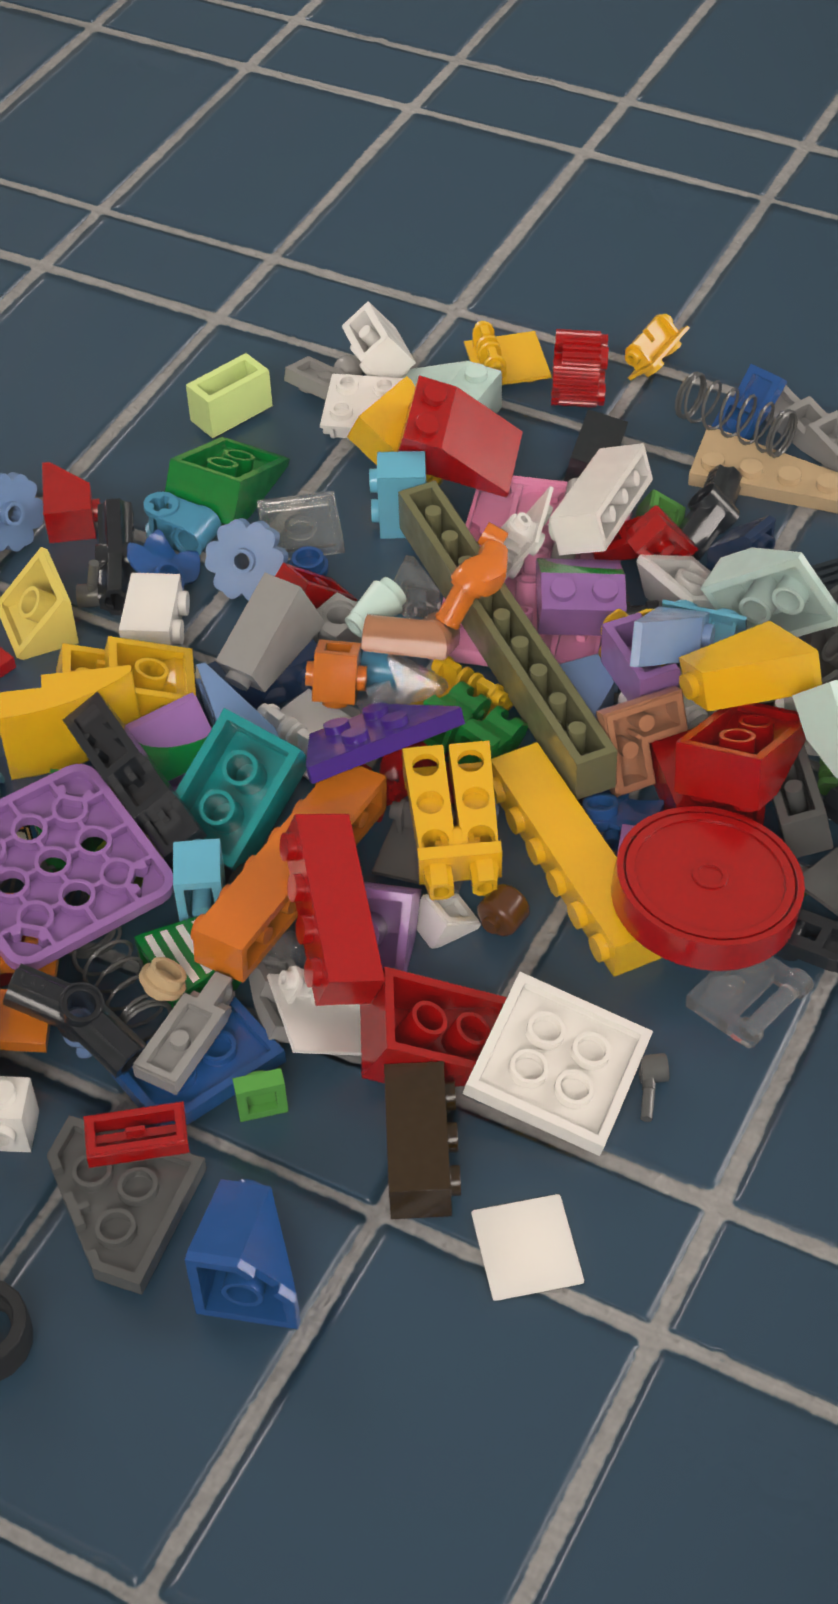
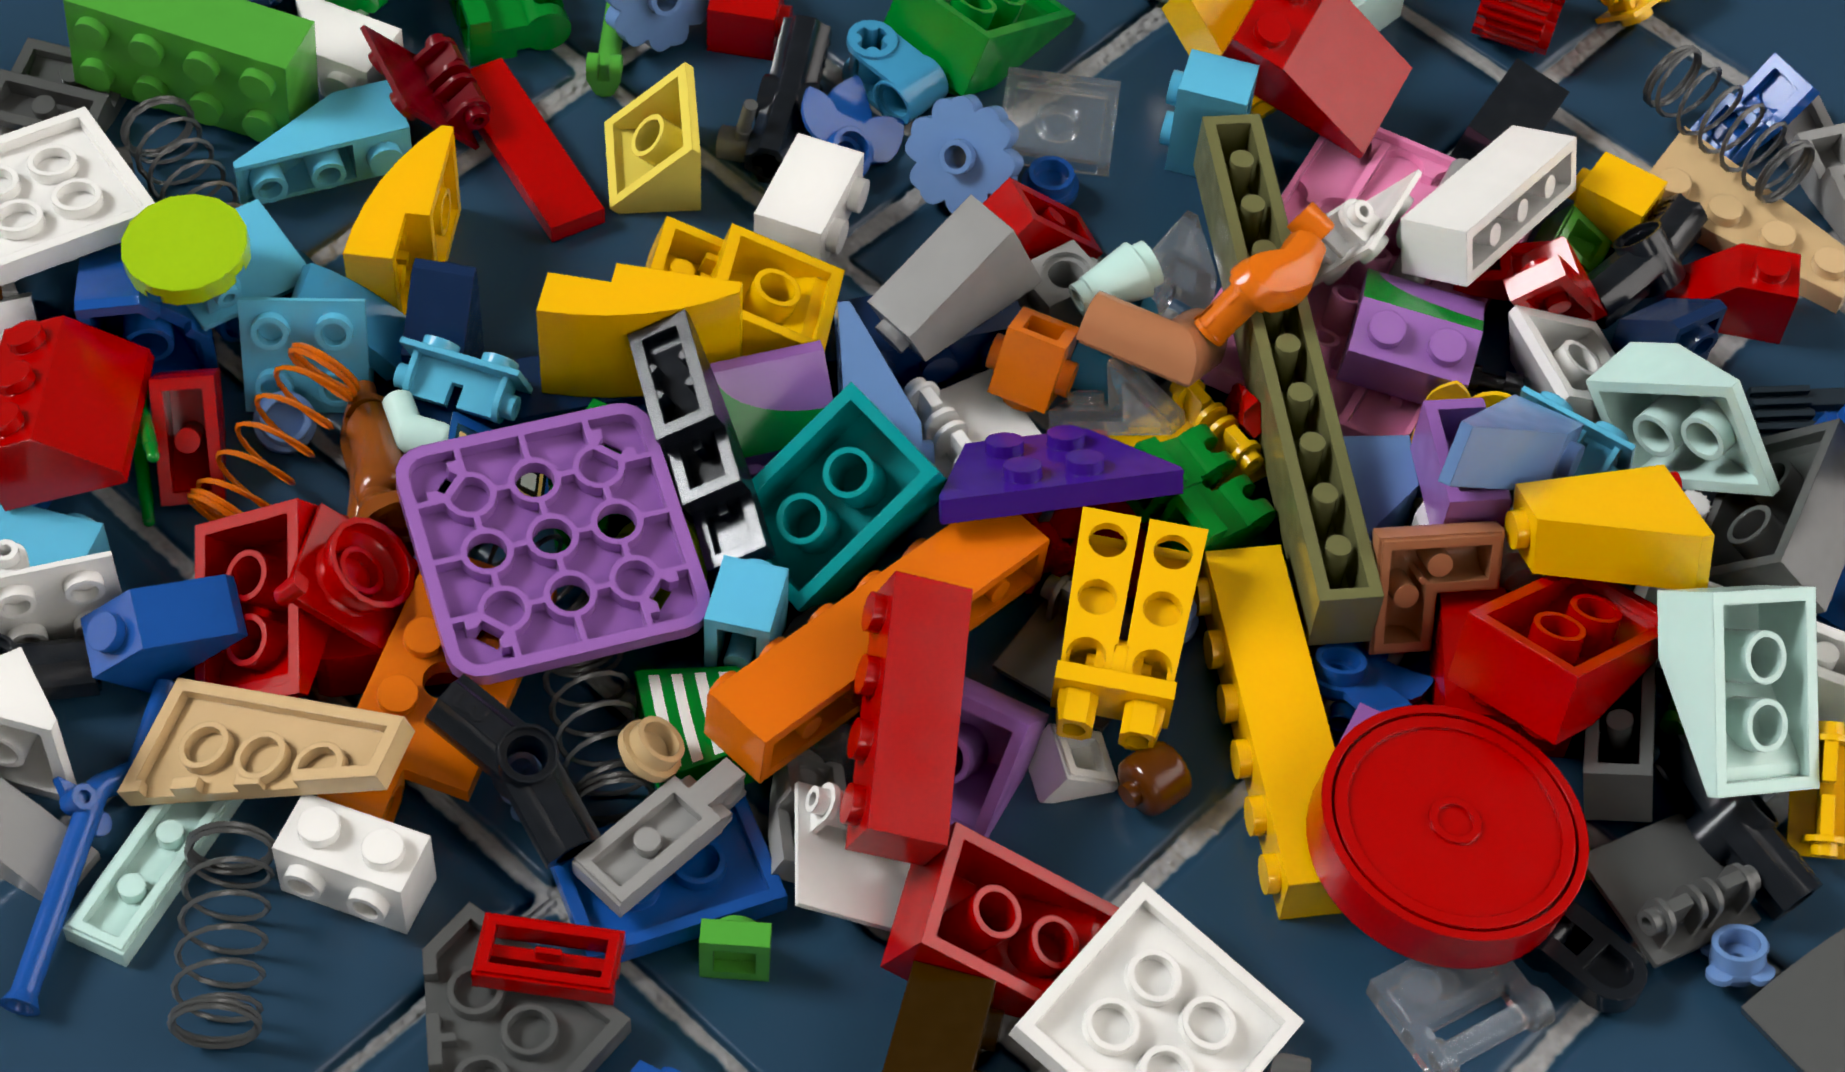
camera: 10 degrees right, 5 degrees up
(486, 665) = (1245, 409): none -> red piece
(679, 476) = (1616, 195): none -> yellow brick
(790, 504) = (1753, 283): none -> red slope

